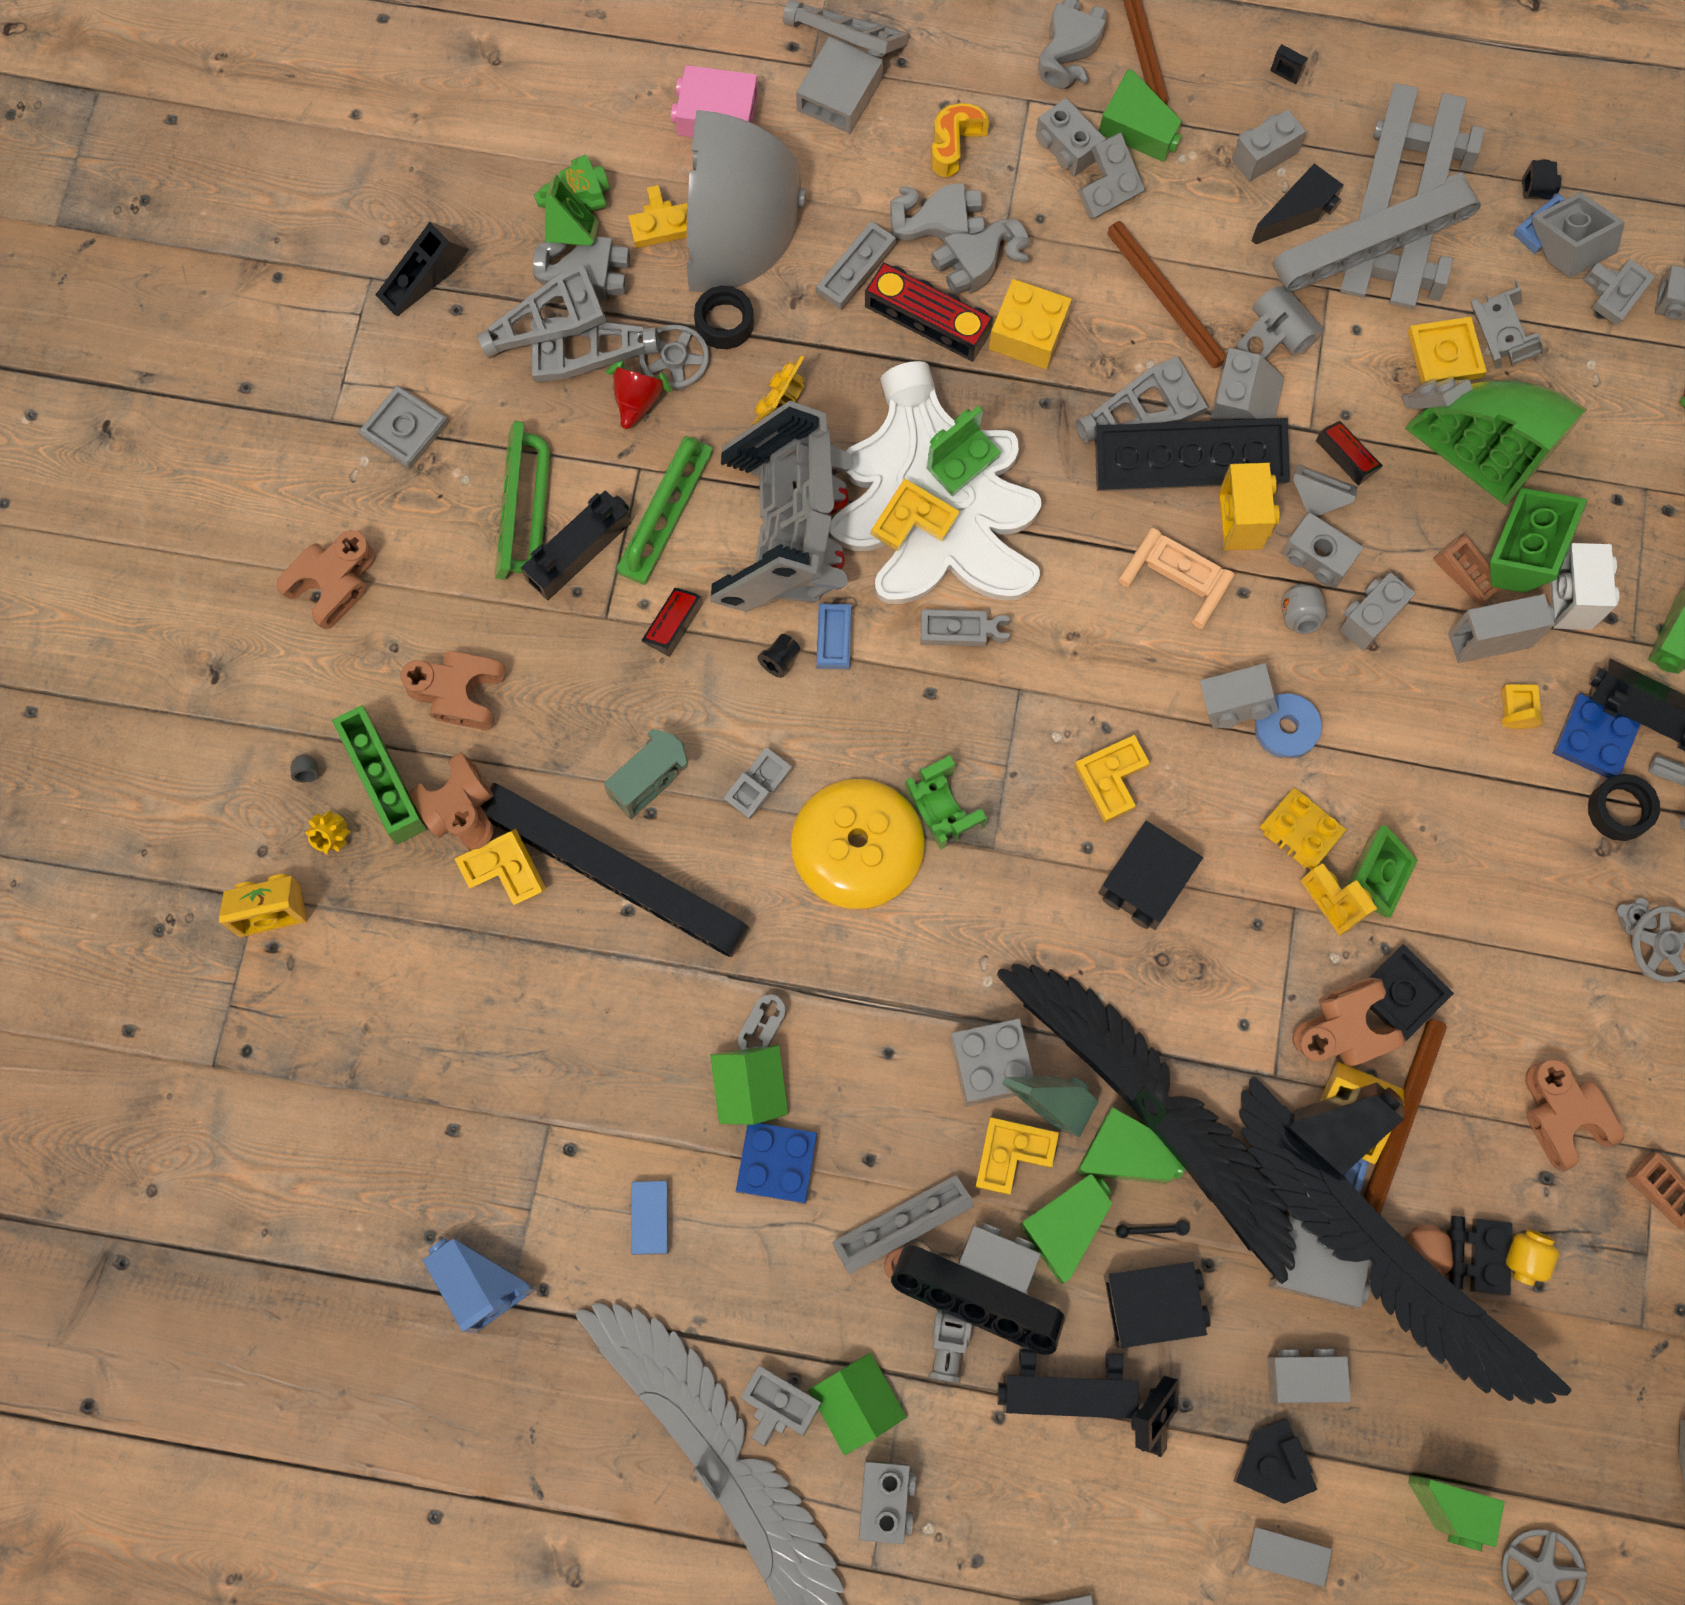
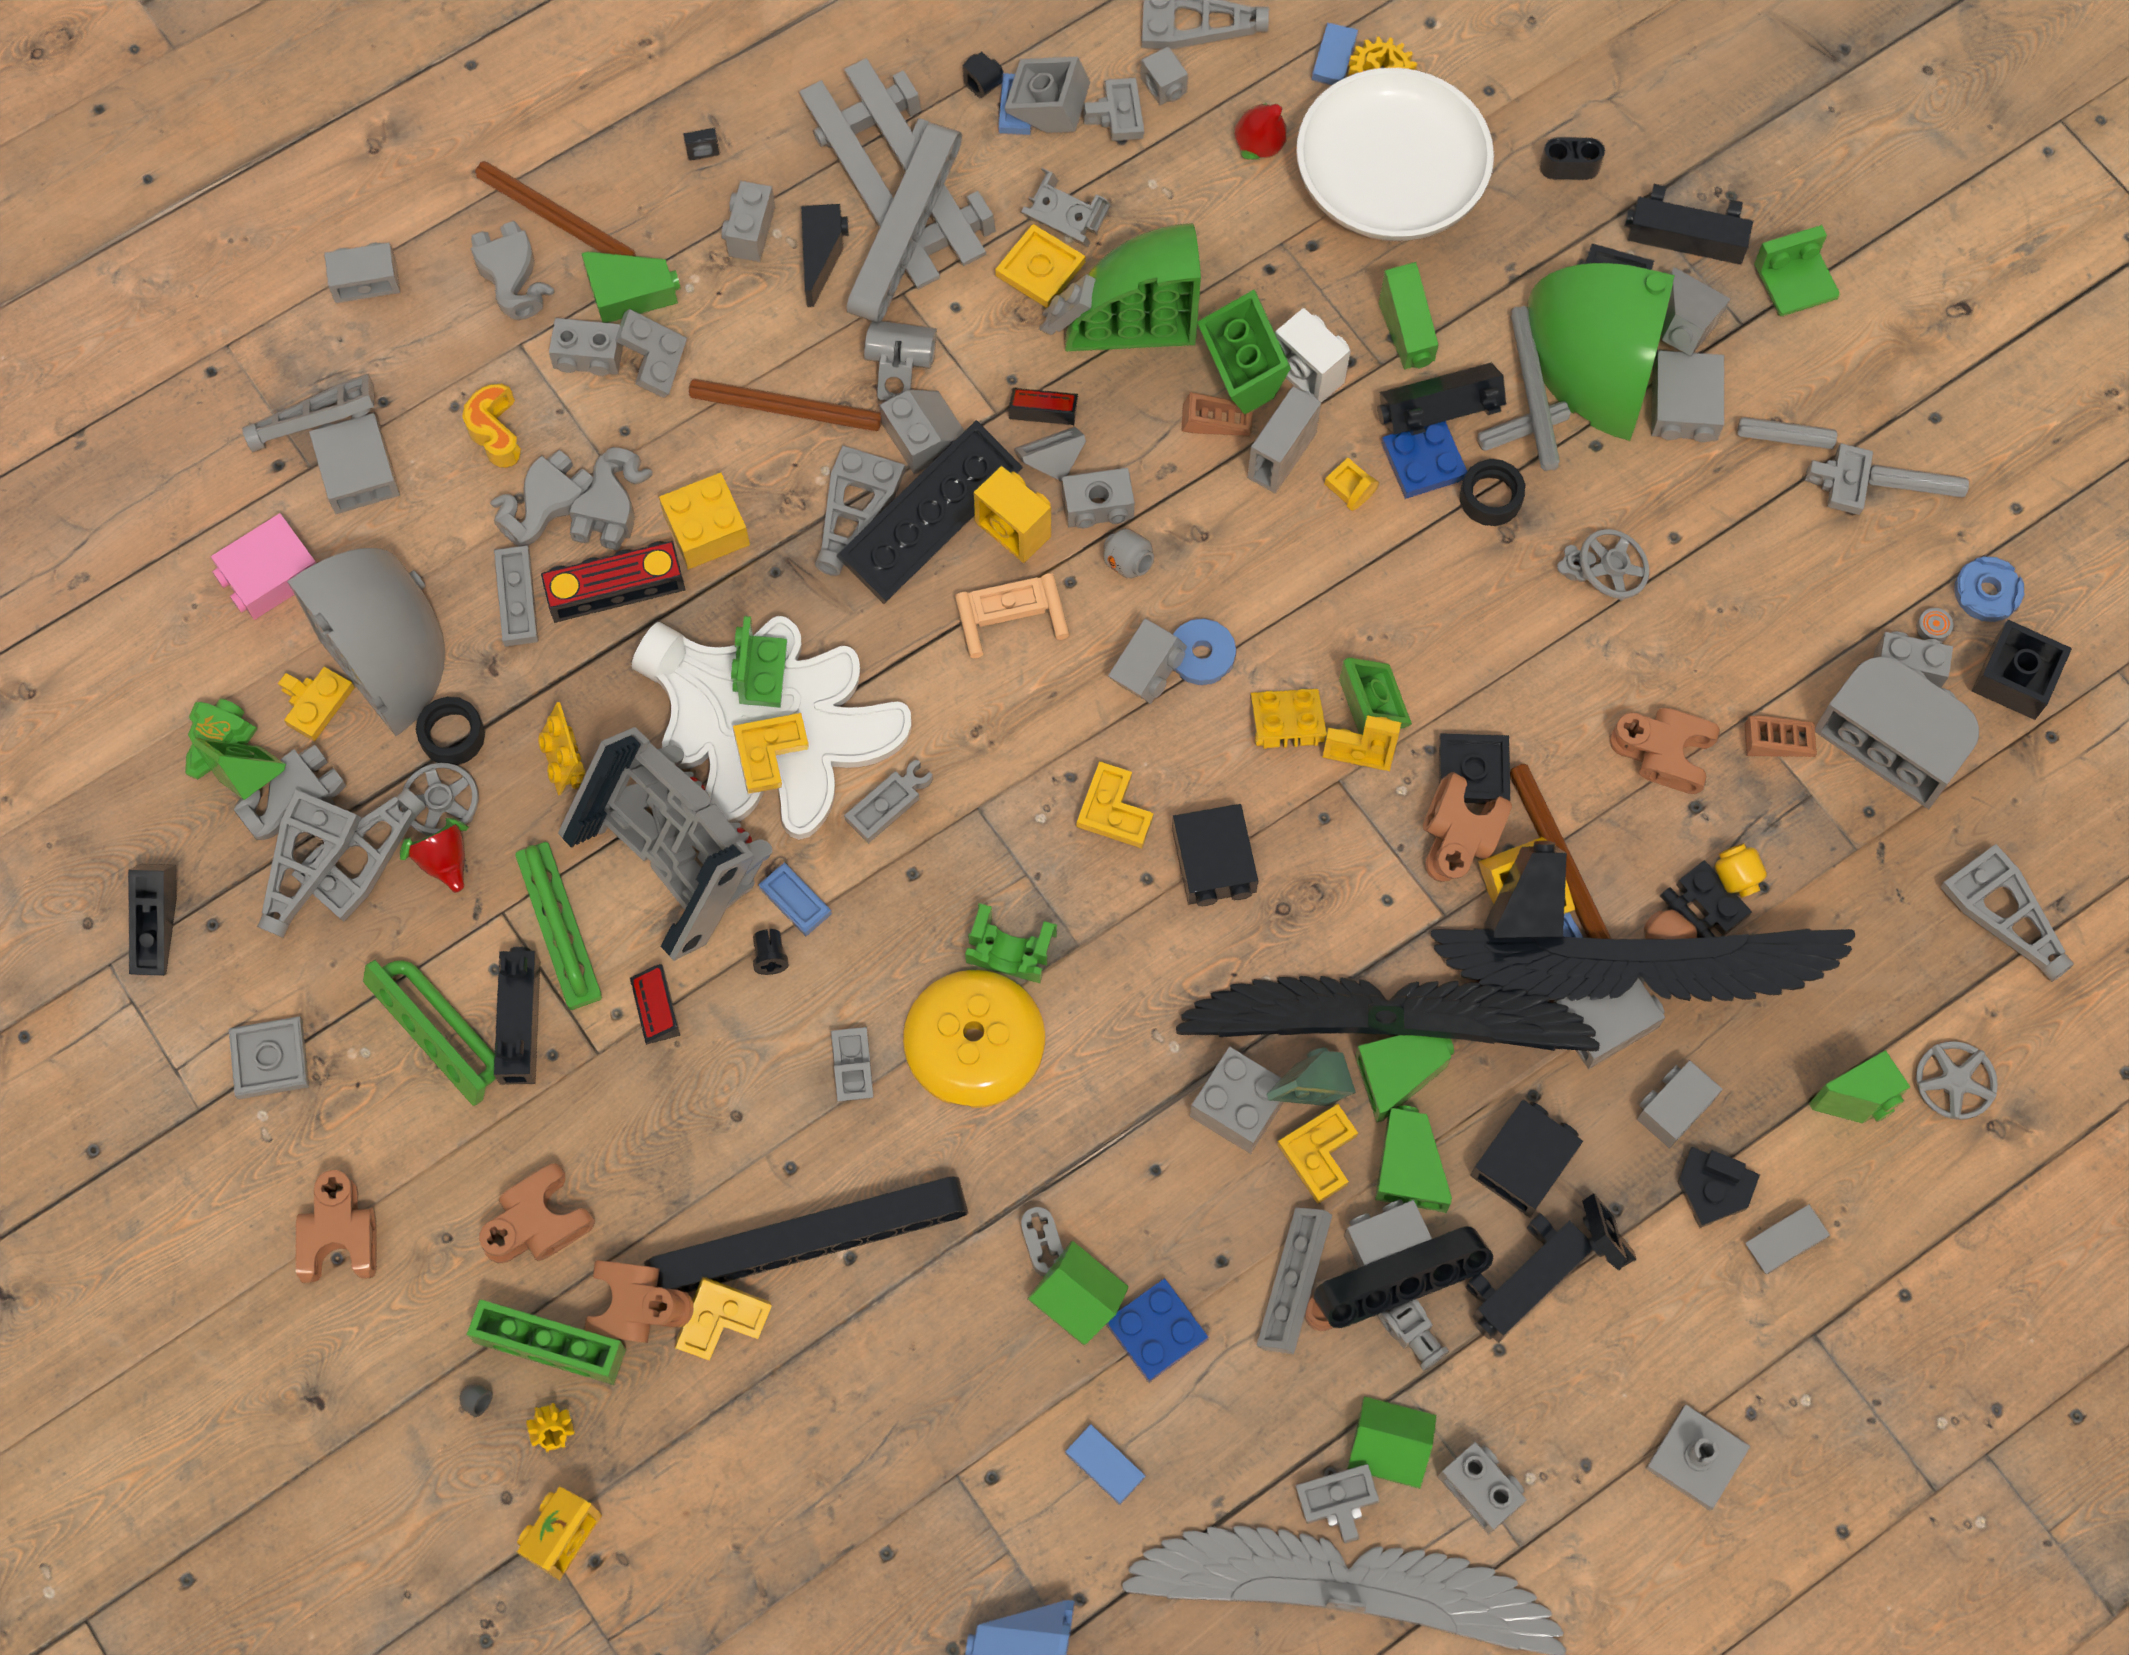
camera: 45 degrees left, 5 degrees down
(647, 773) = (760, 1136): sand green piece -> none
(1180, 1229) = (1489, 1088): black hinge -> none
(1380, 607) = (1183, 507): light grey brick -> none

